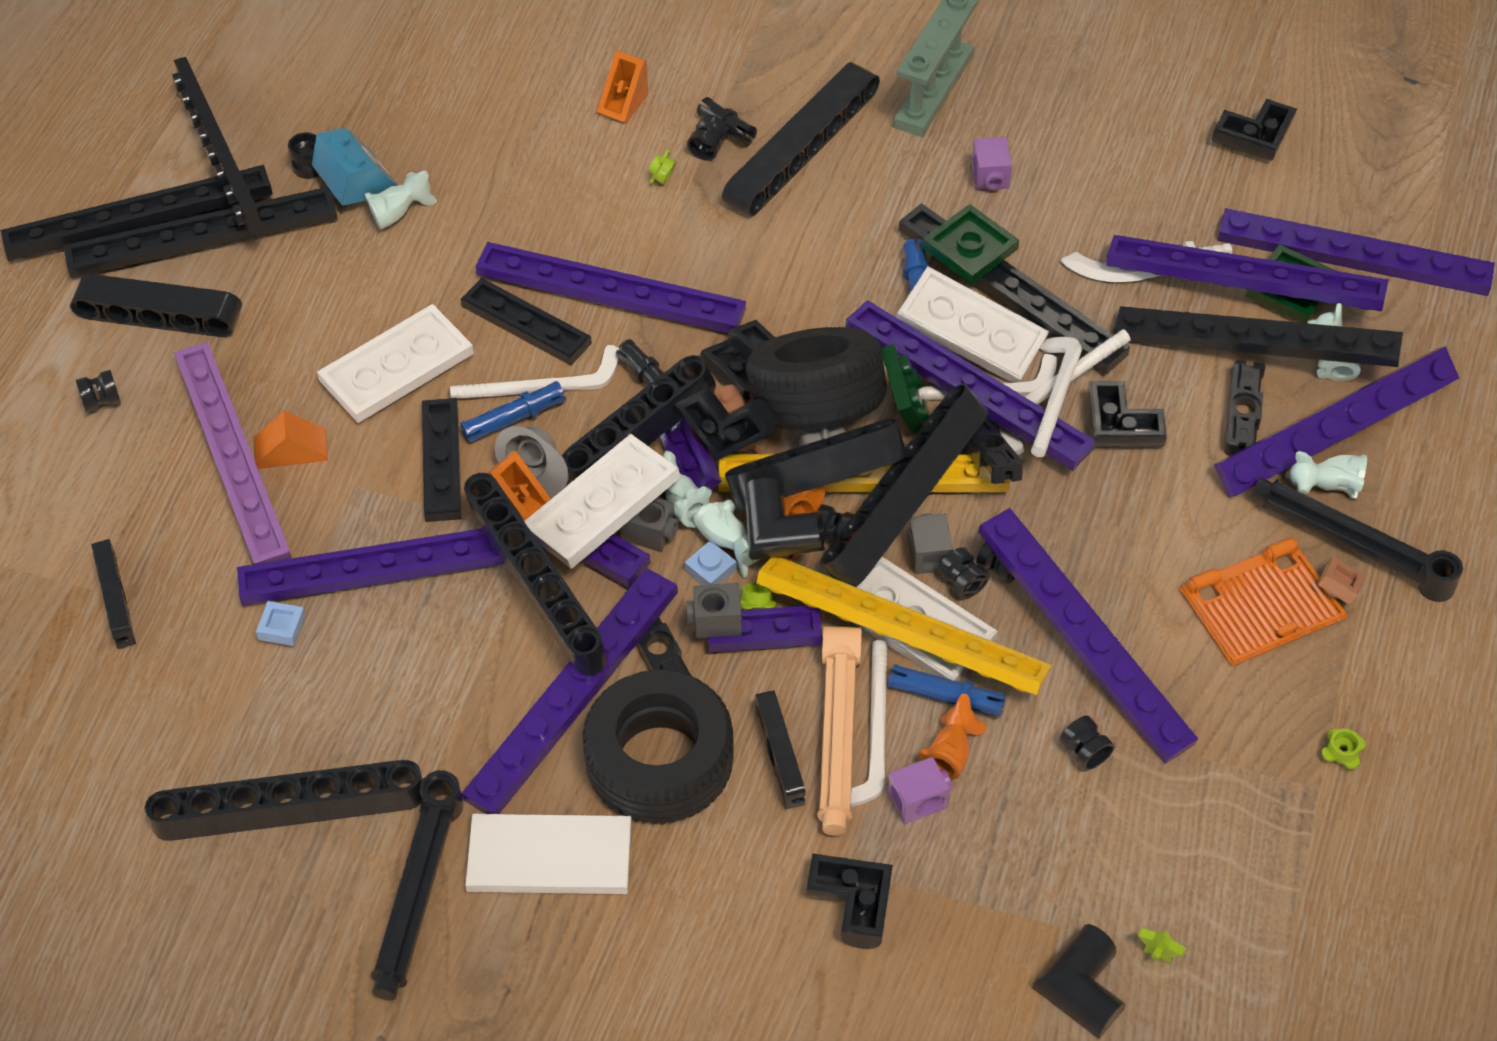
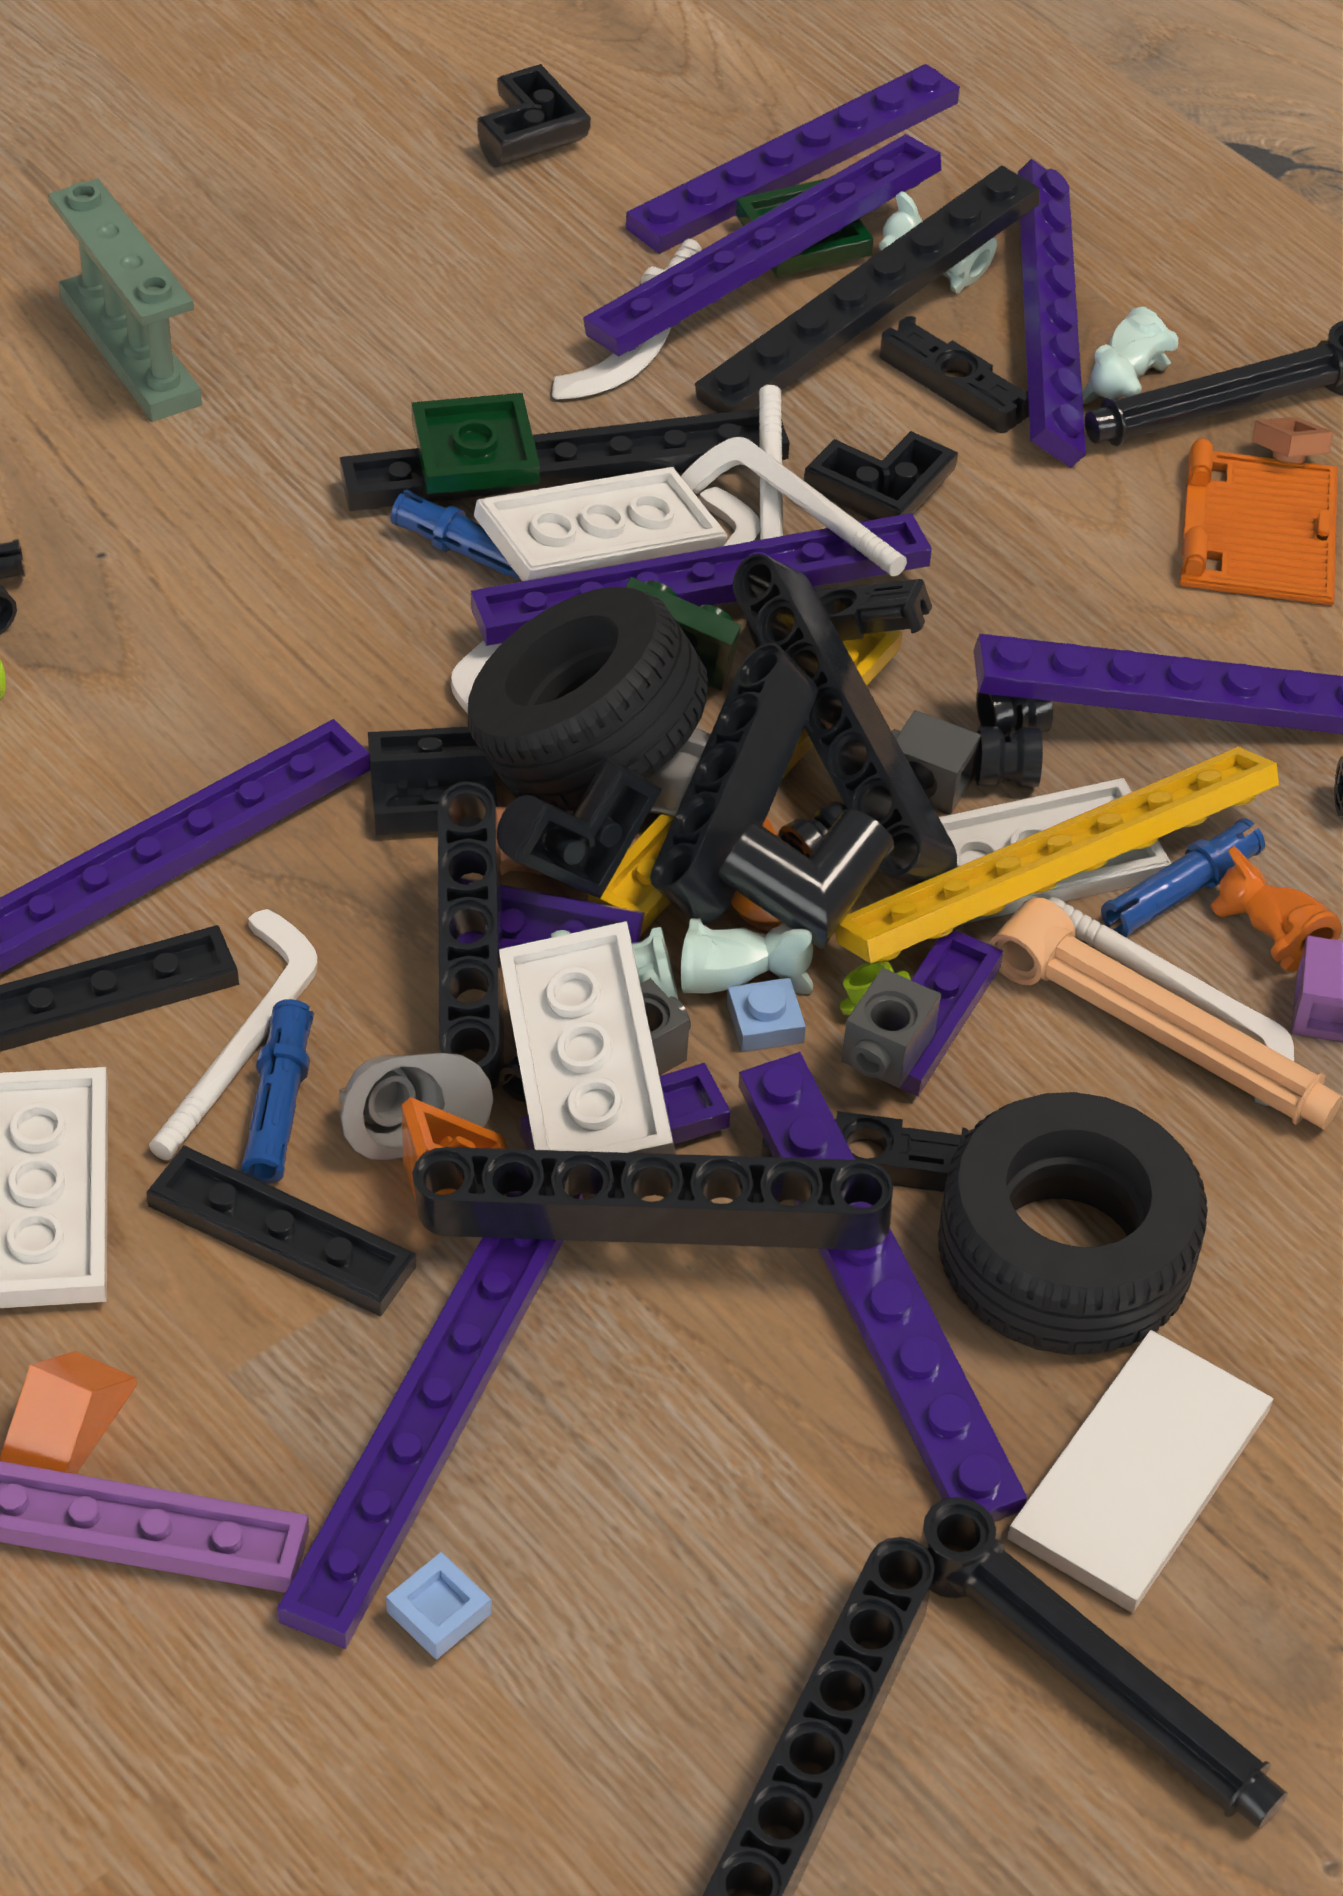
camera: 60 degrees left, 5 degrees down
(113, 593) = (168, 1826): black piece -> none
(645, 368) = (346, 895): black pin -> none
(780, 749) = (1195, 1107): black piece -> none
(800, 139) = (88, 513): black beam -> none
(991, 163) = (337, 360): medium lavender brick -> none

